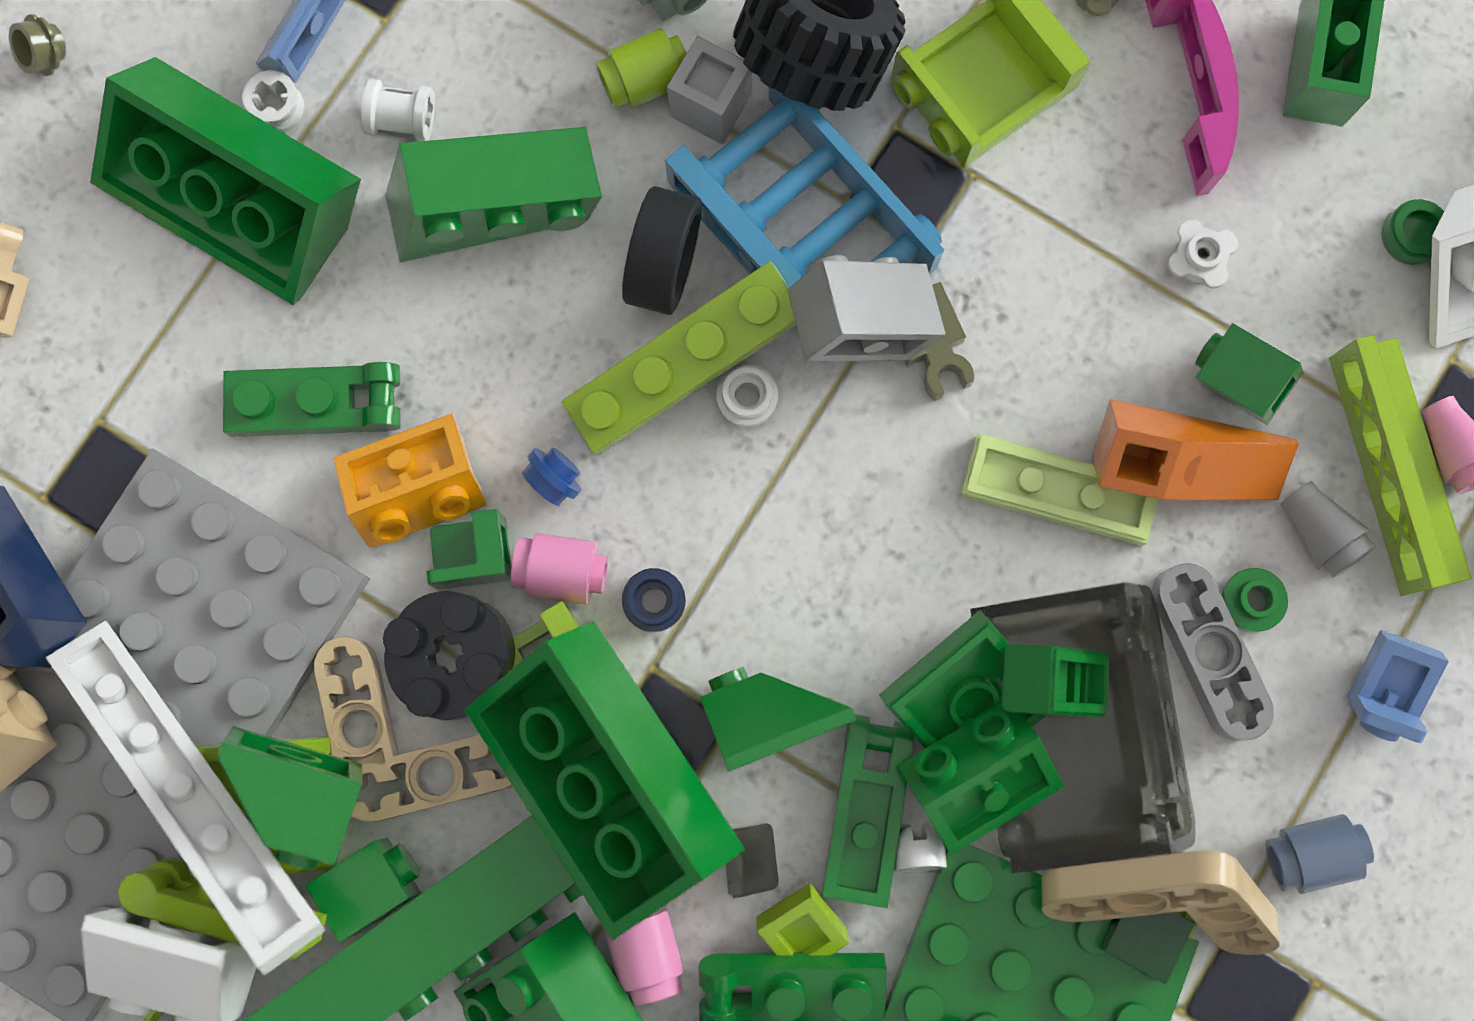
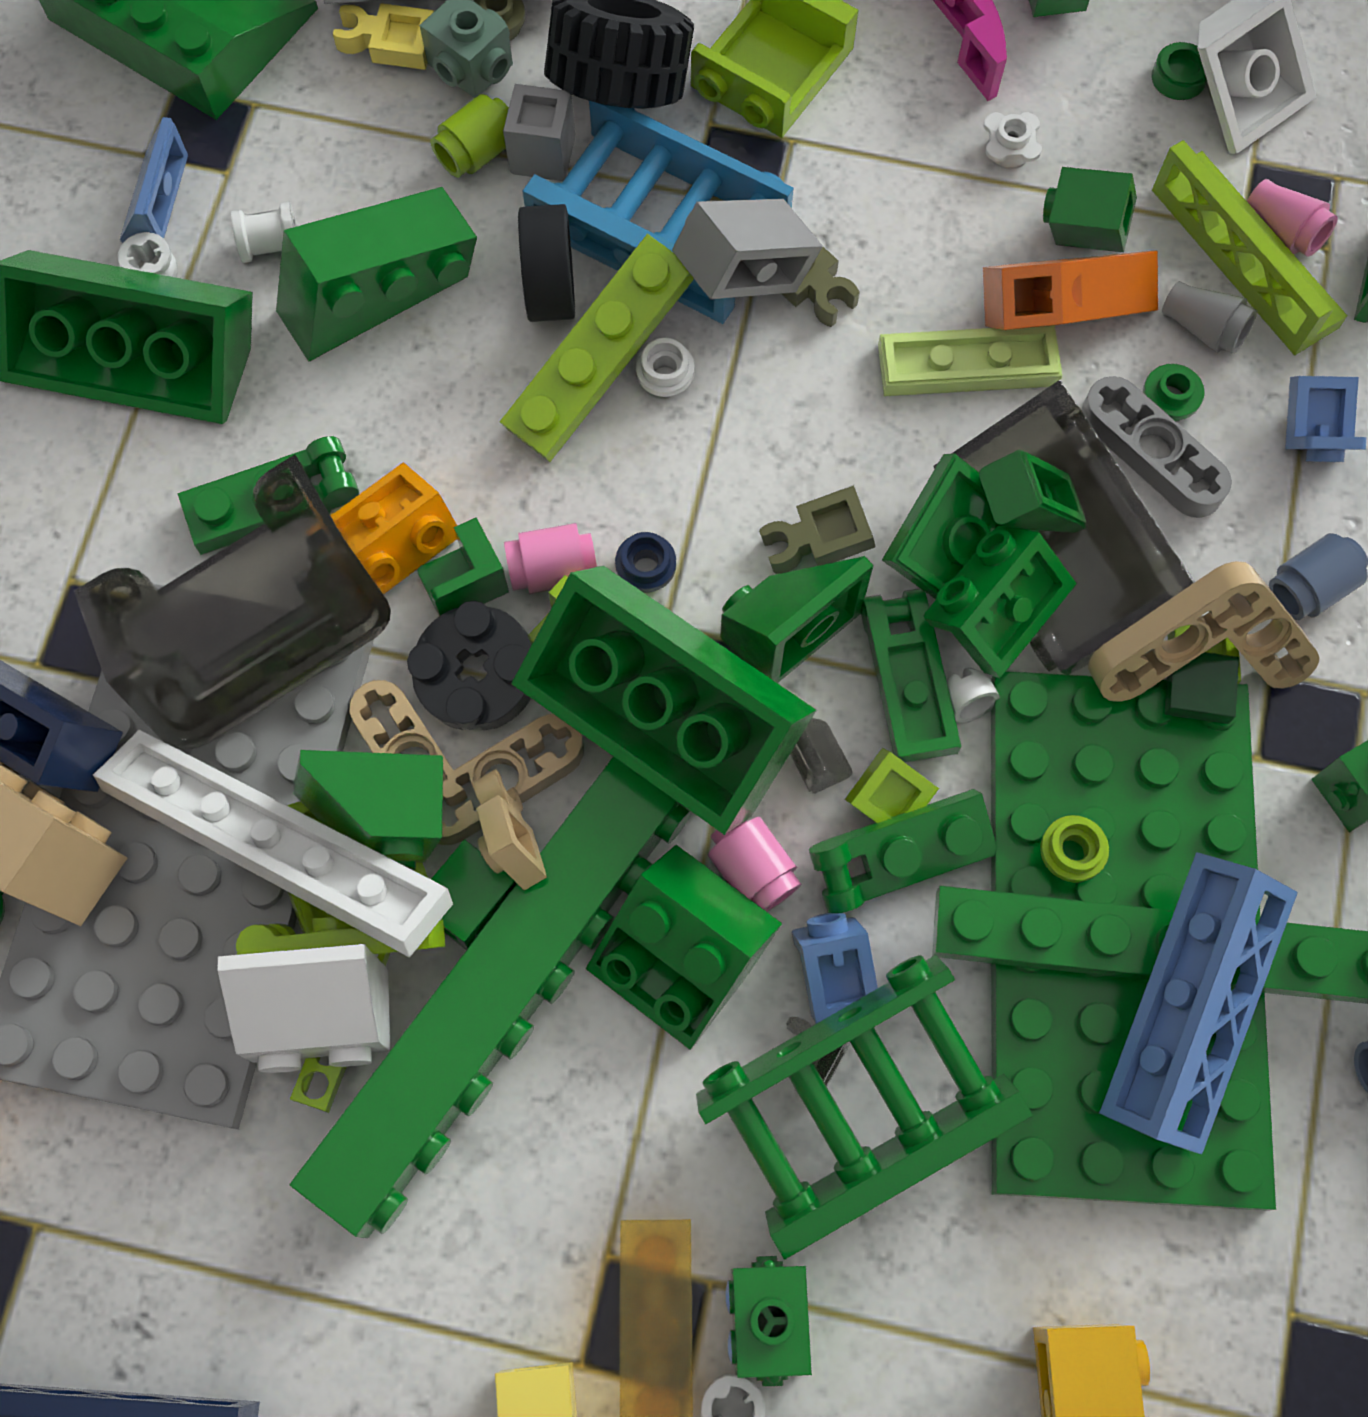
camera: 20 degrees left, 10 degrees down
(224, 543) = (239, 622): none -> clear smoke windscreen
(412, 859) = (507, 839): none -> tan plate
(552, 475) = (514, 484): blue plate -> none
(846, 630) = (829, 528): none -> olive plate

